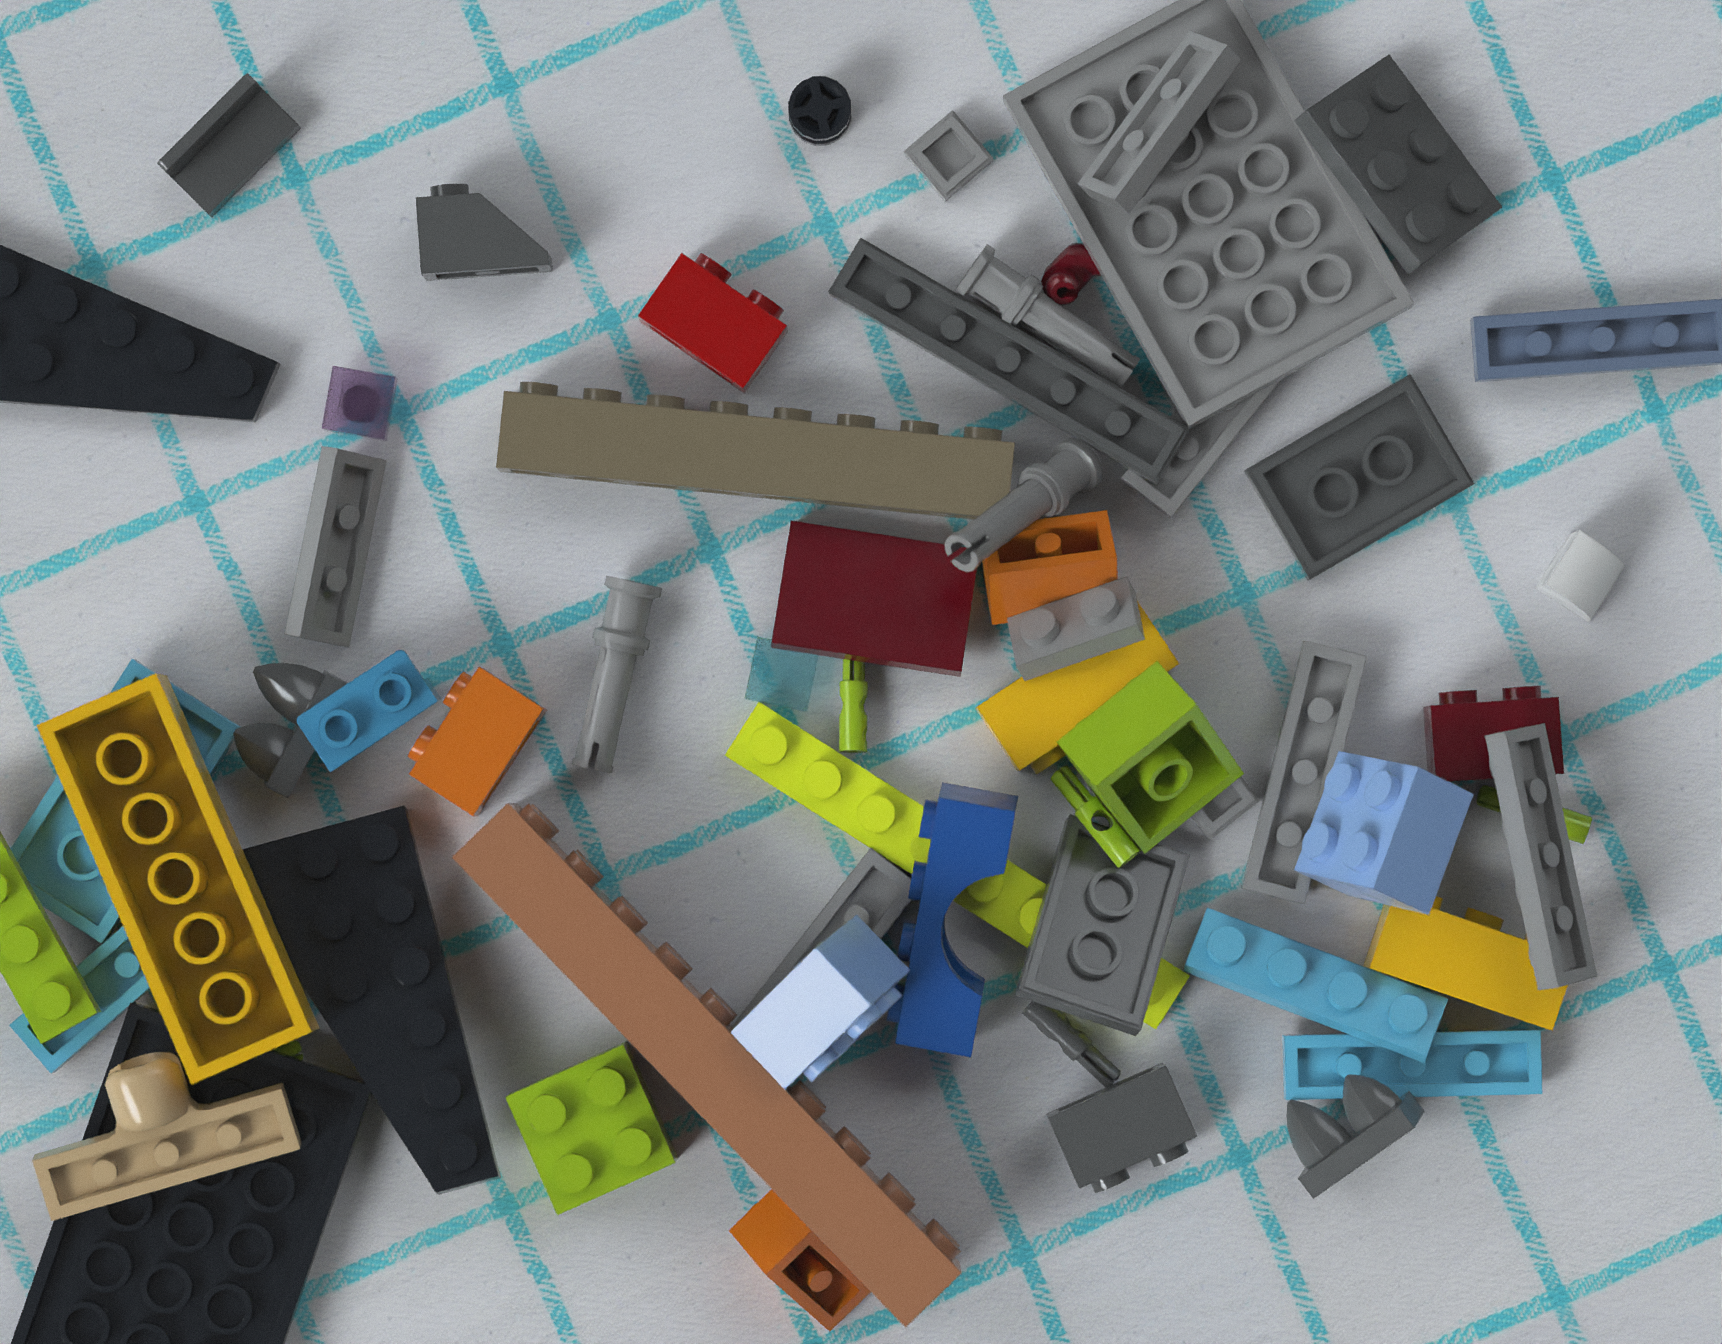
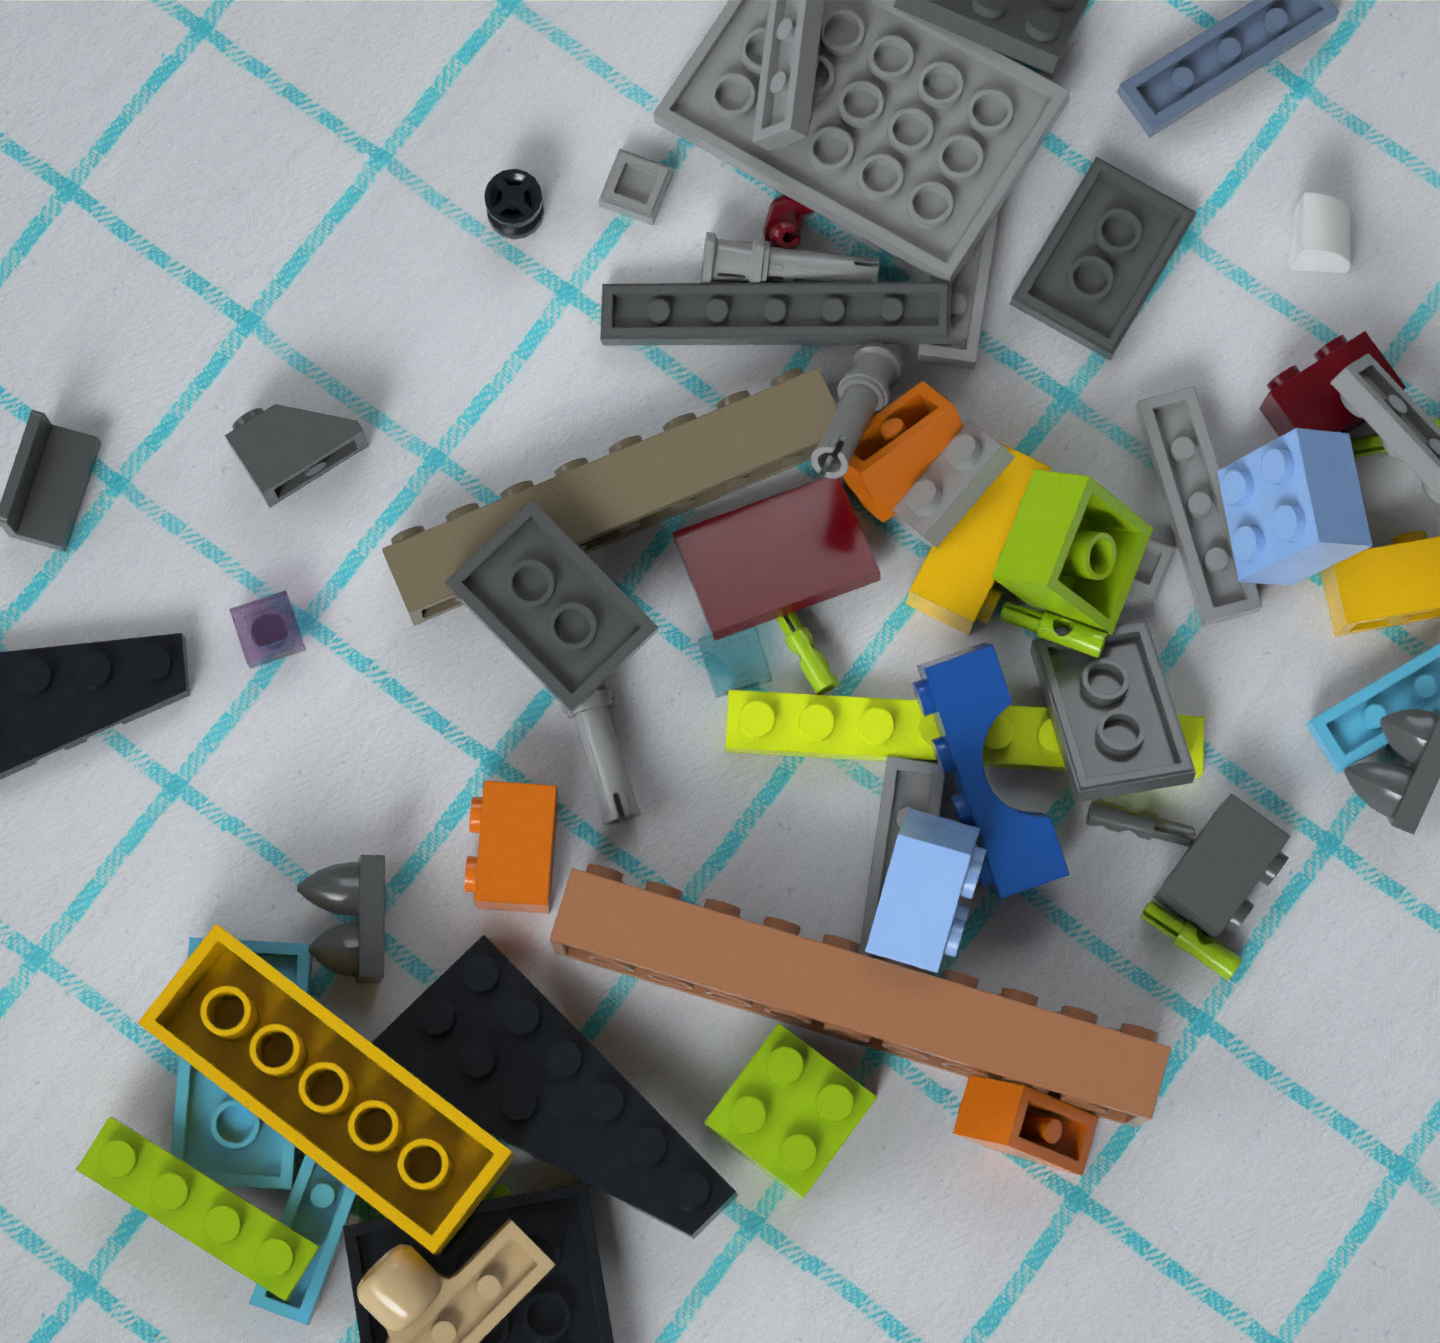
camera: 30 degrees left, 10 degrees down
(335, 546) = (310, 754): light grey plate -> none
(367, 709) = (411, 868): dark azure bracket -> none
(629, 539) = (551, 606): none -> dark grey plate
(715, 321) = (521, 408): red brick -> none
(1056, 1176) = (1193, 941): none -> lime pin
(1315, 985) = (1310, 666): medium azure plate -> none

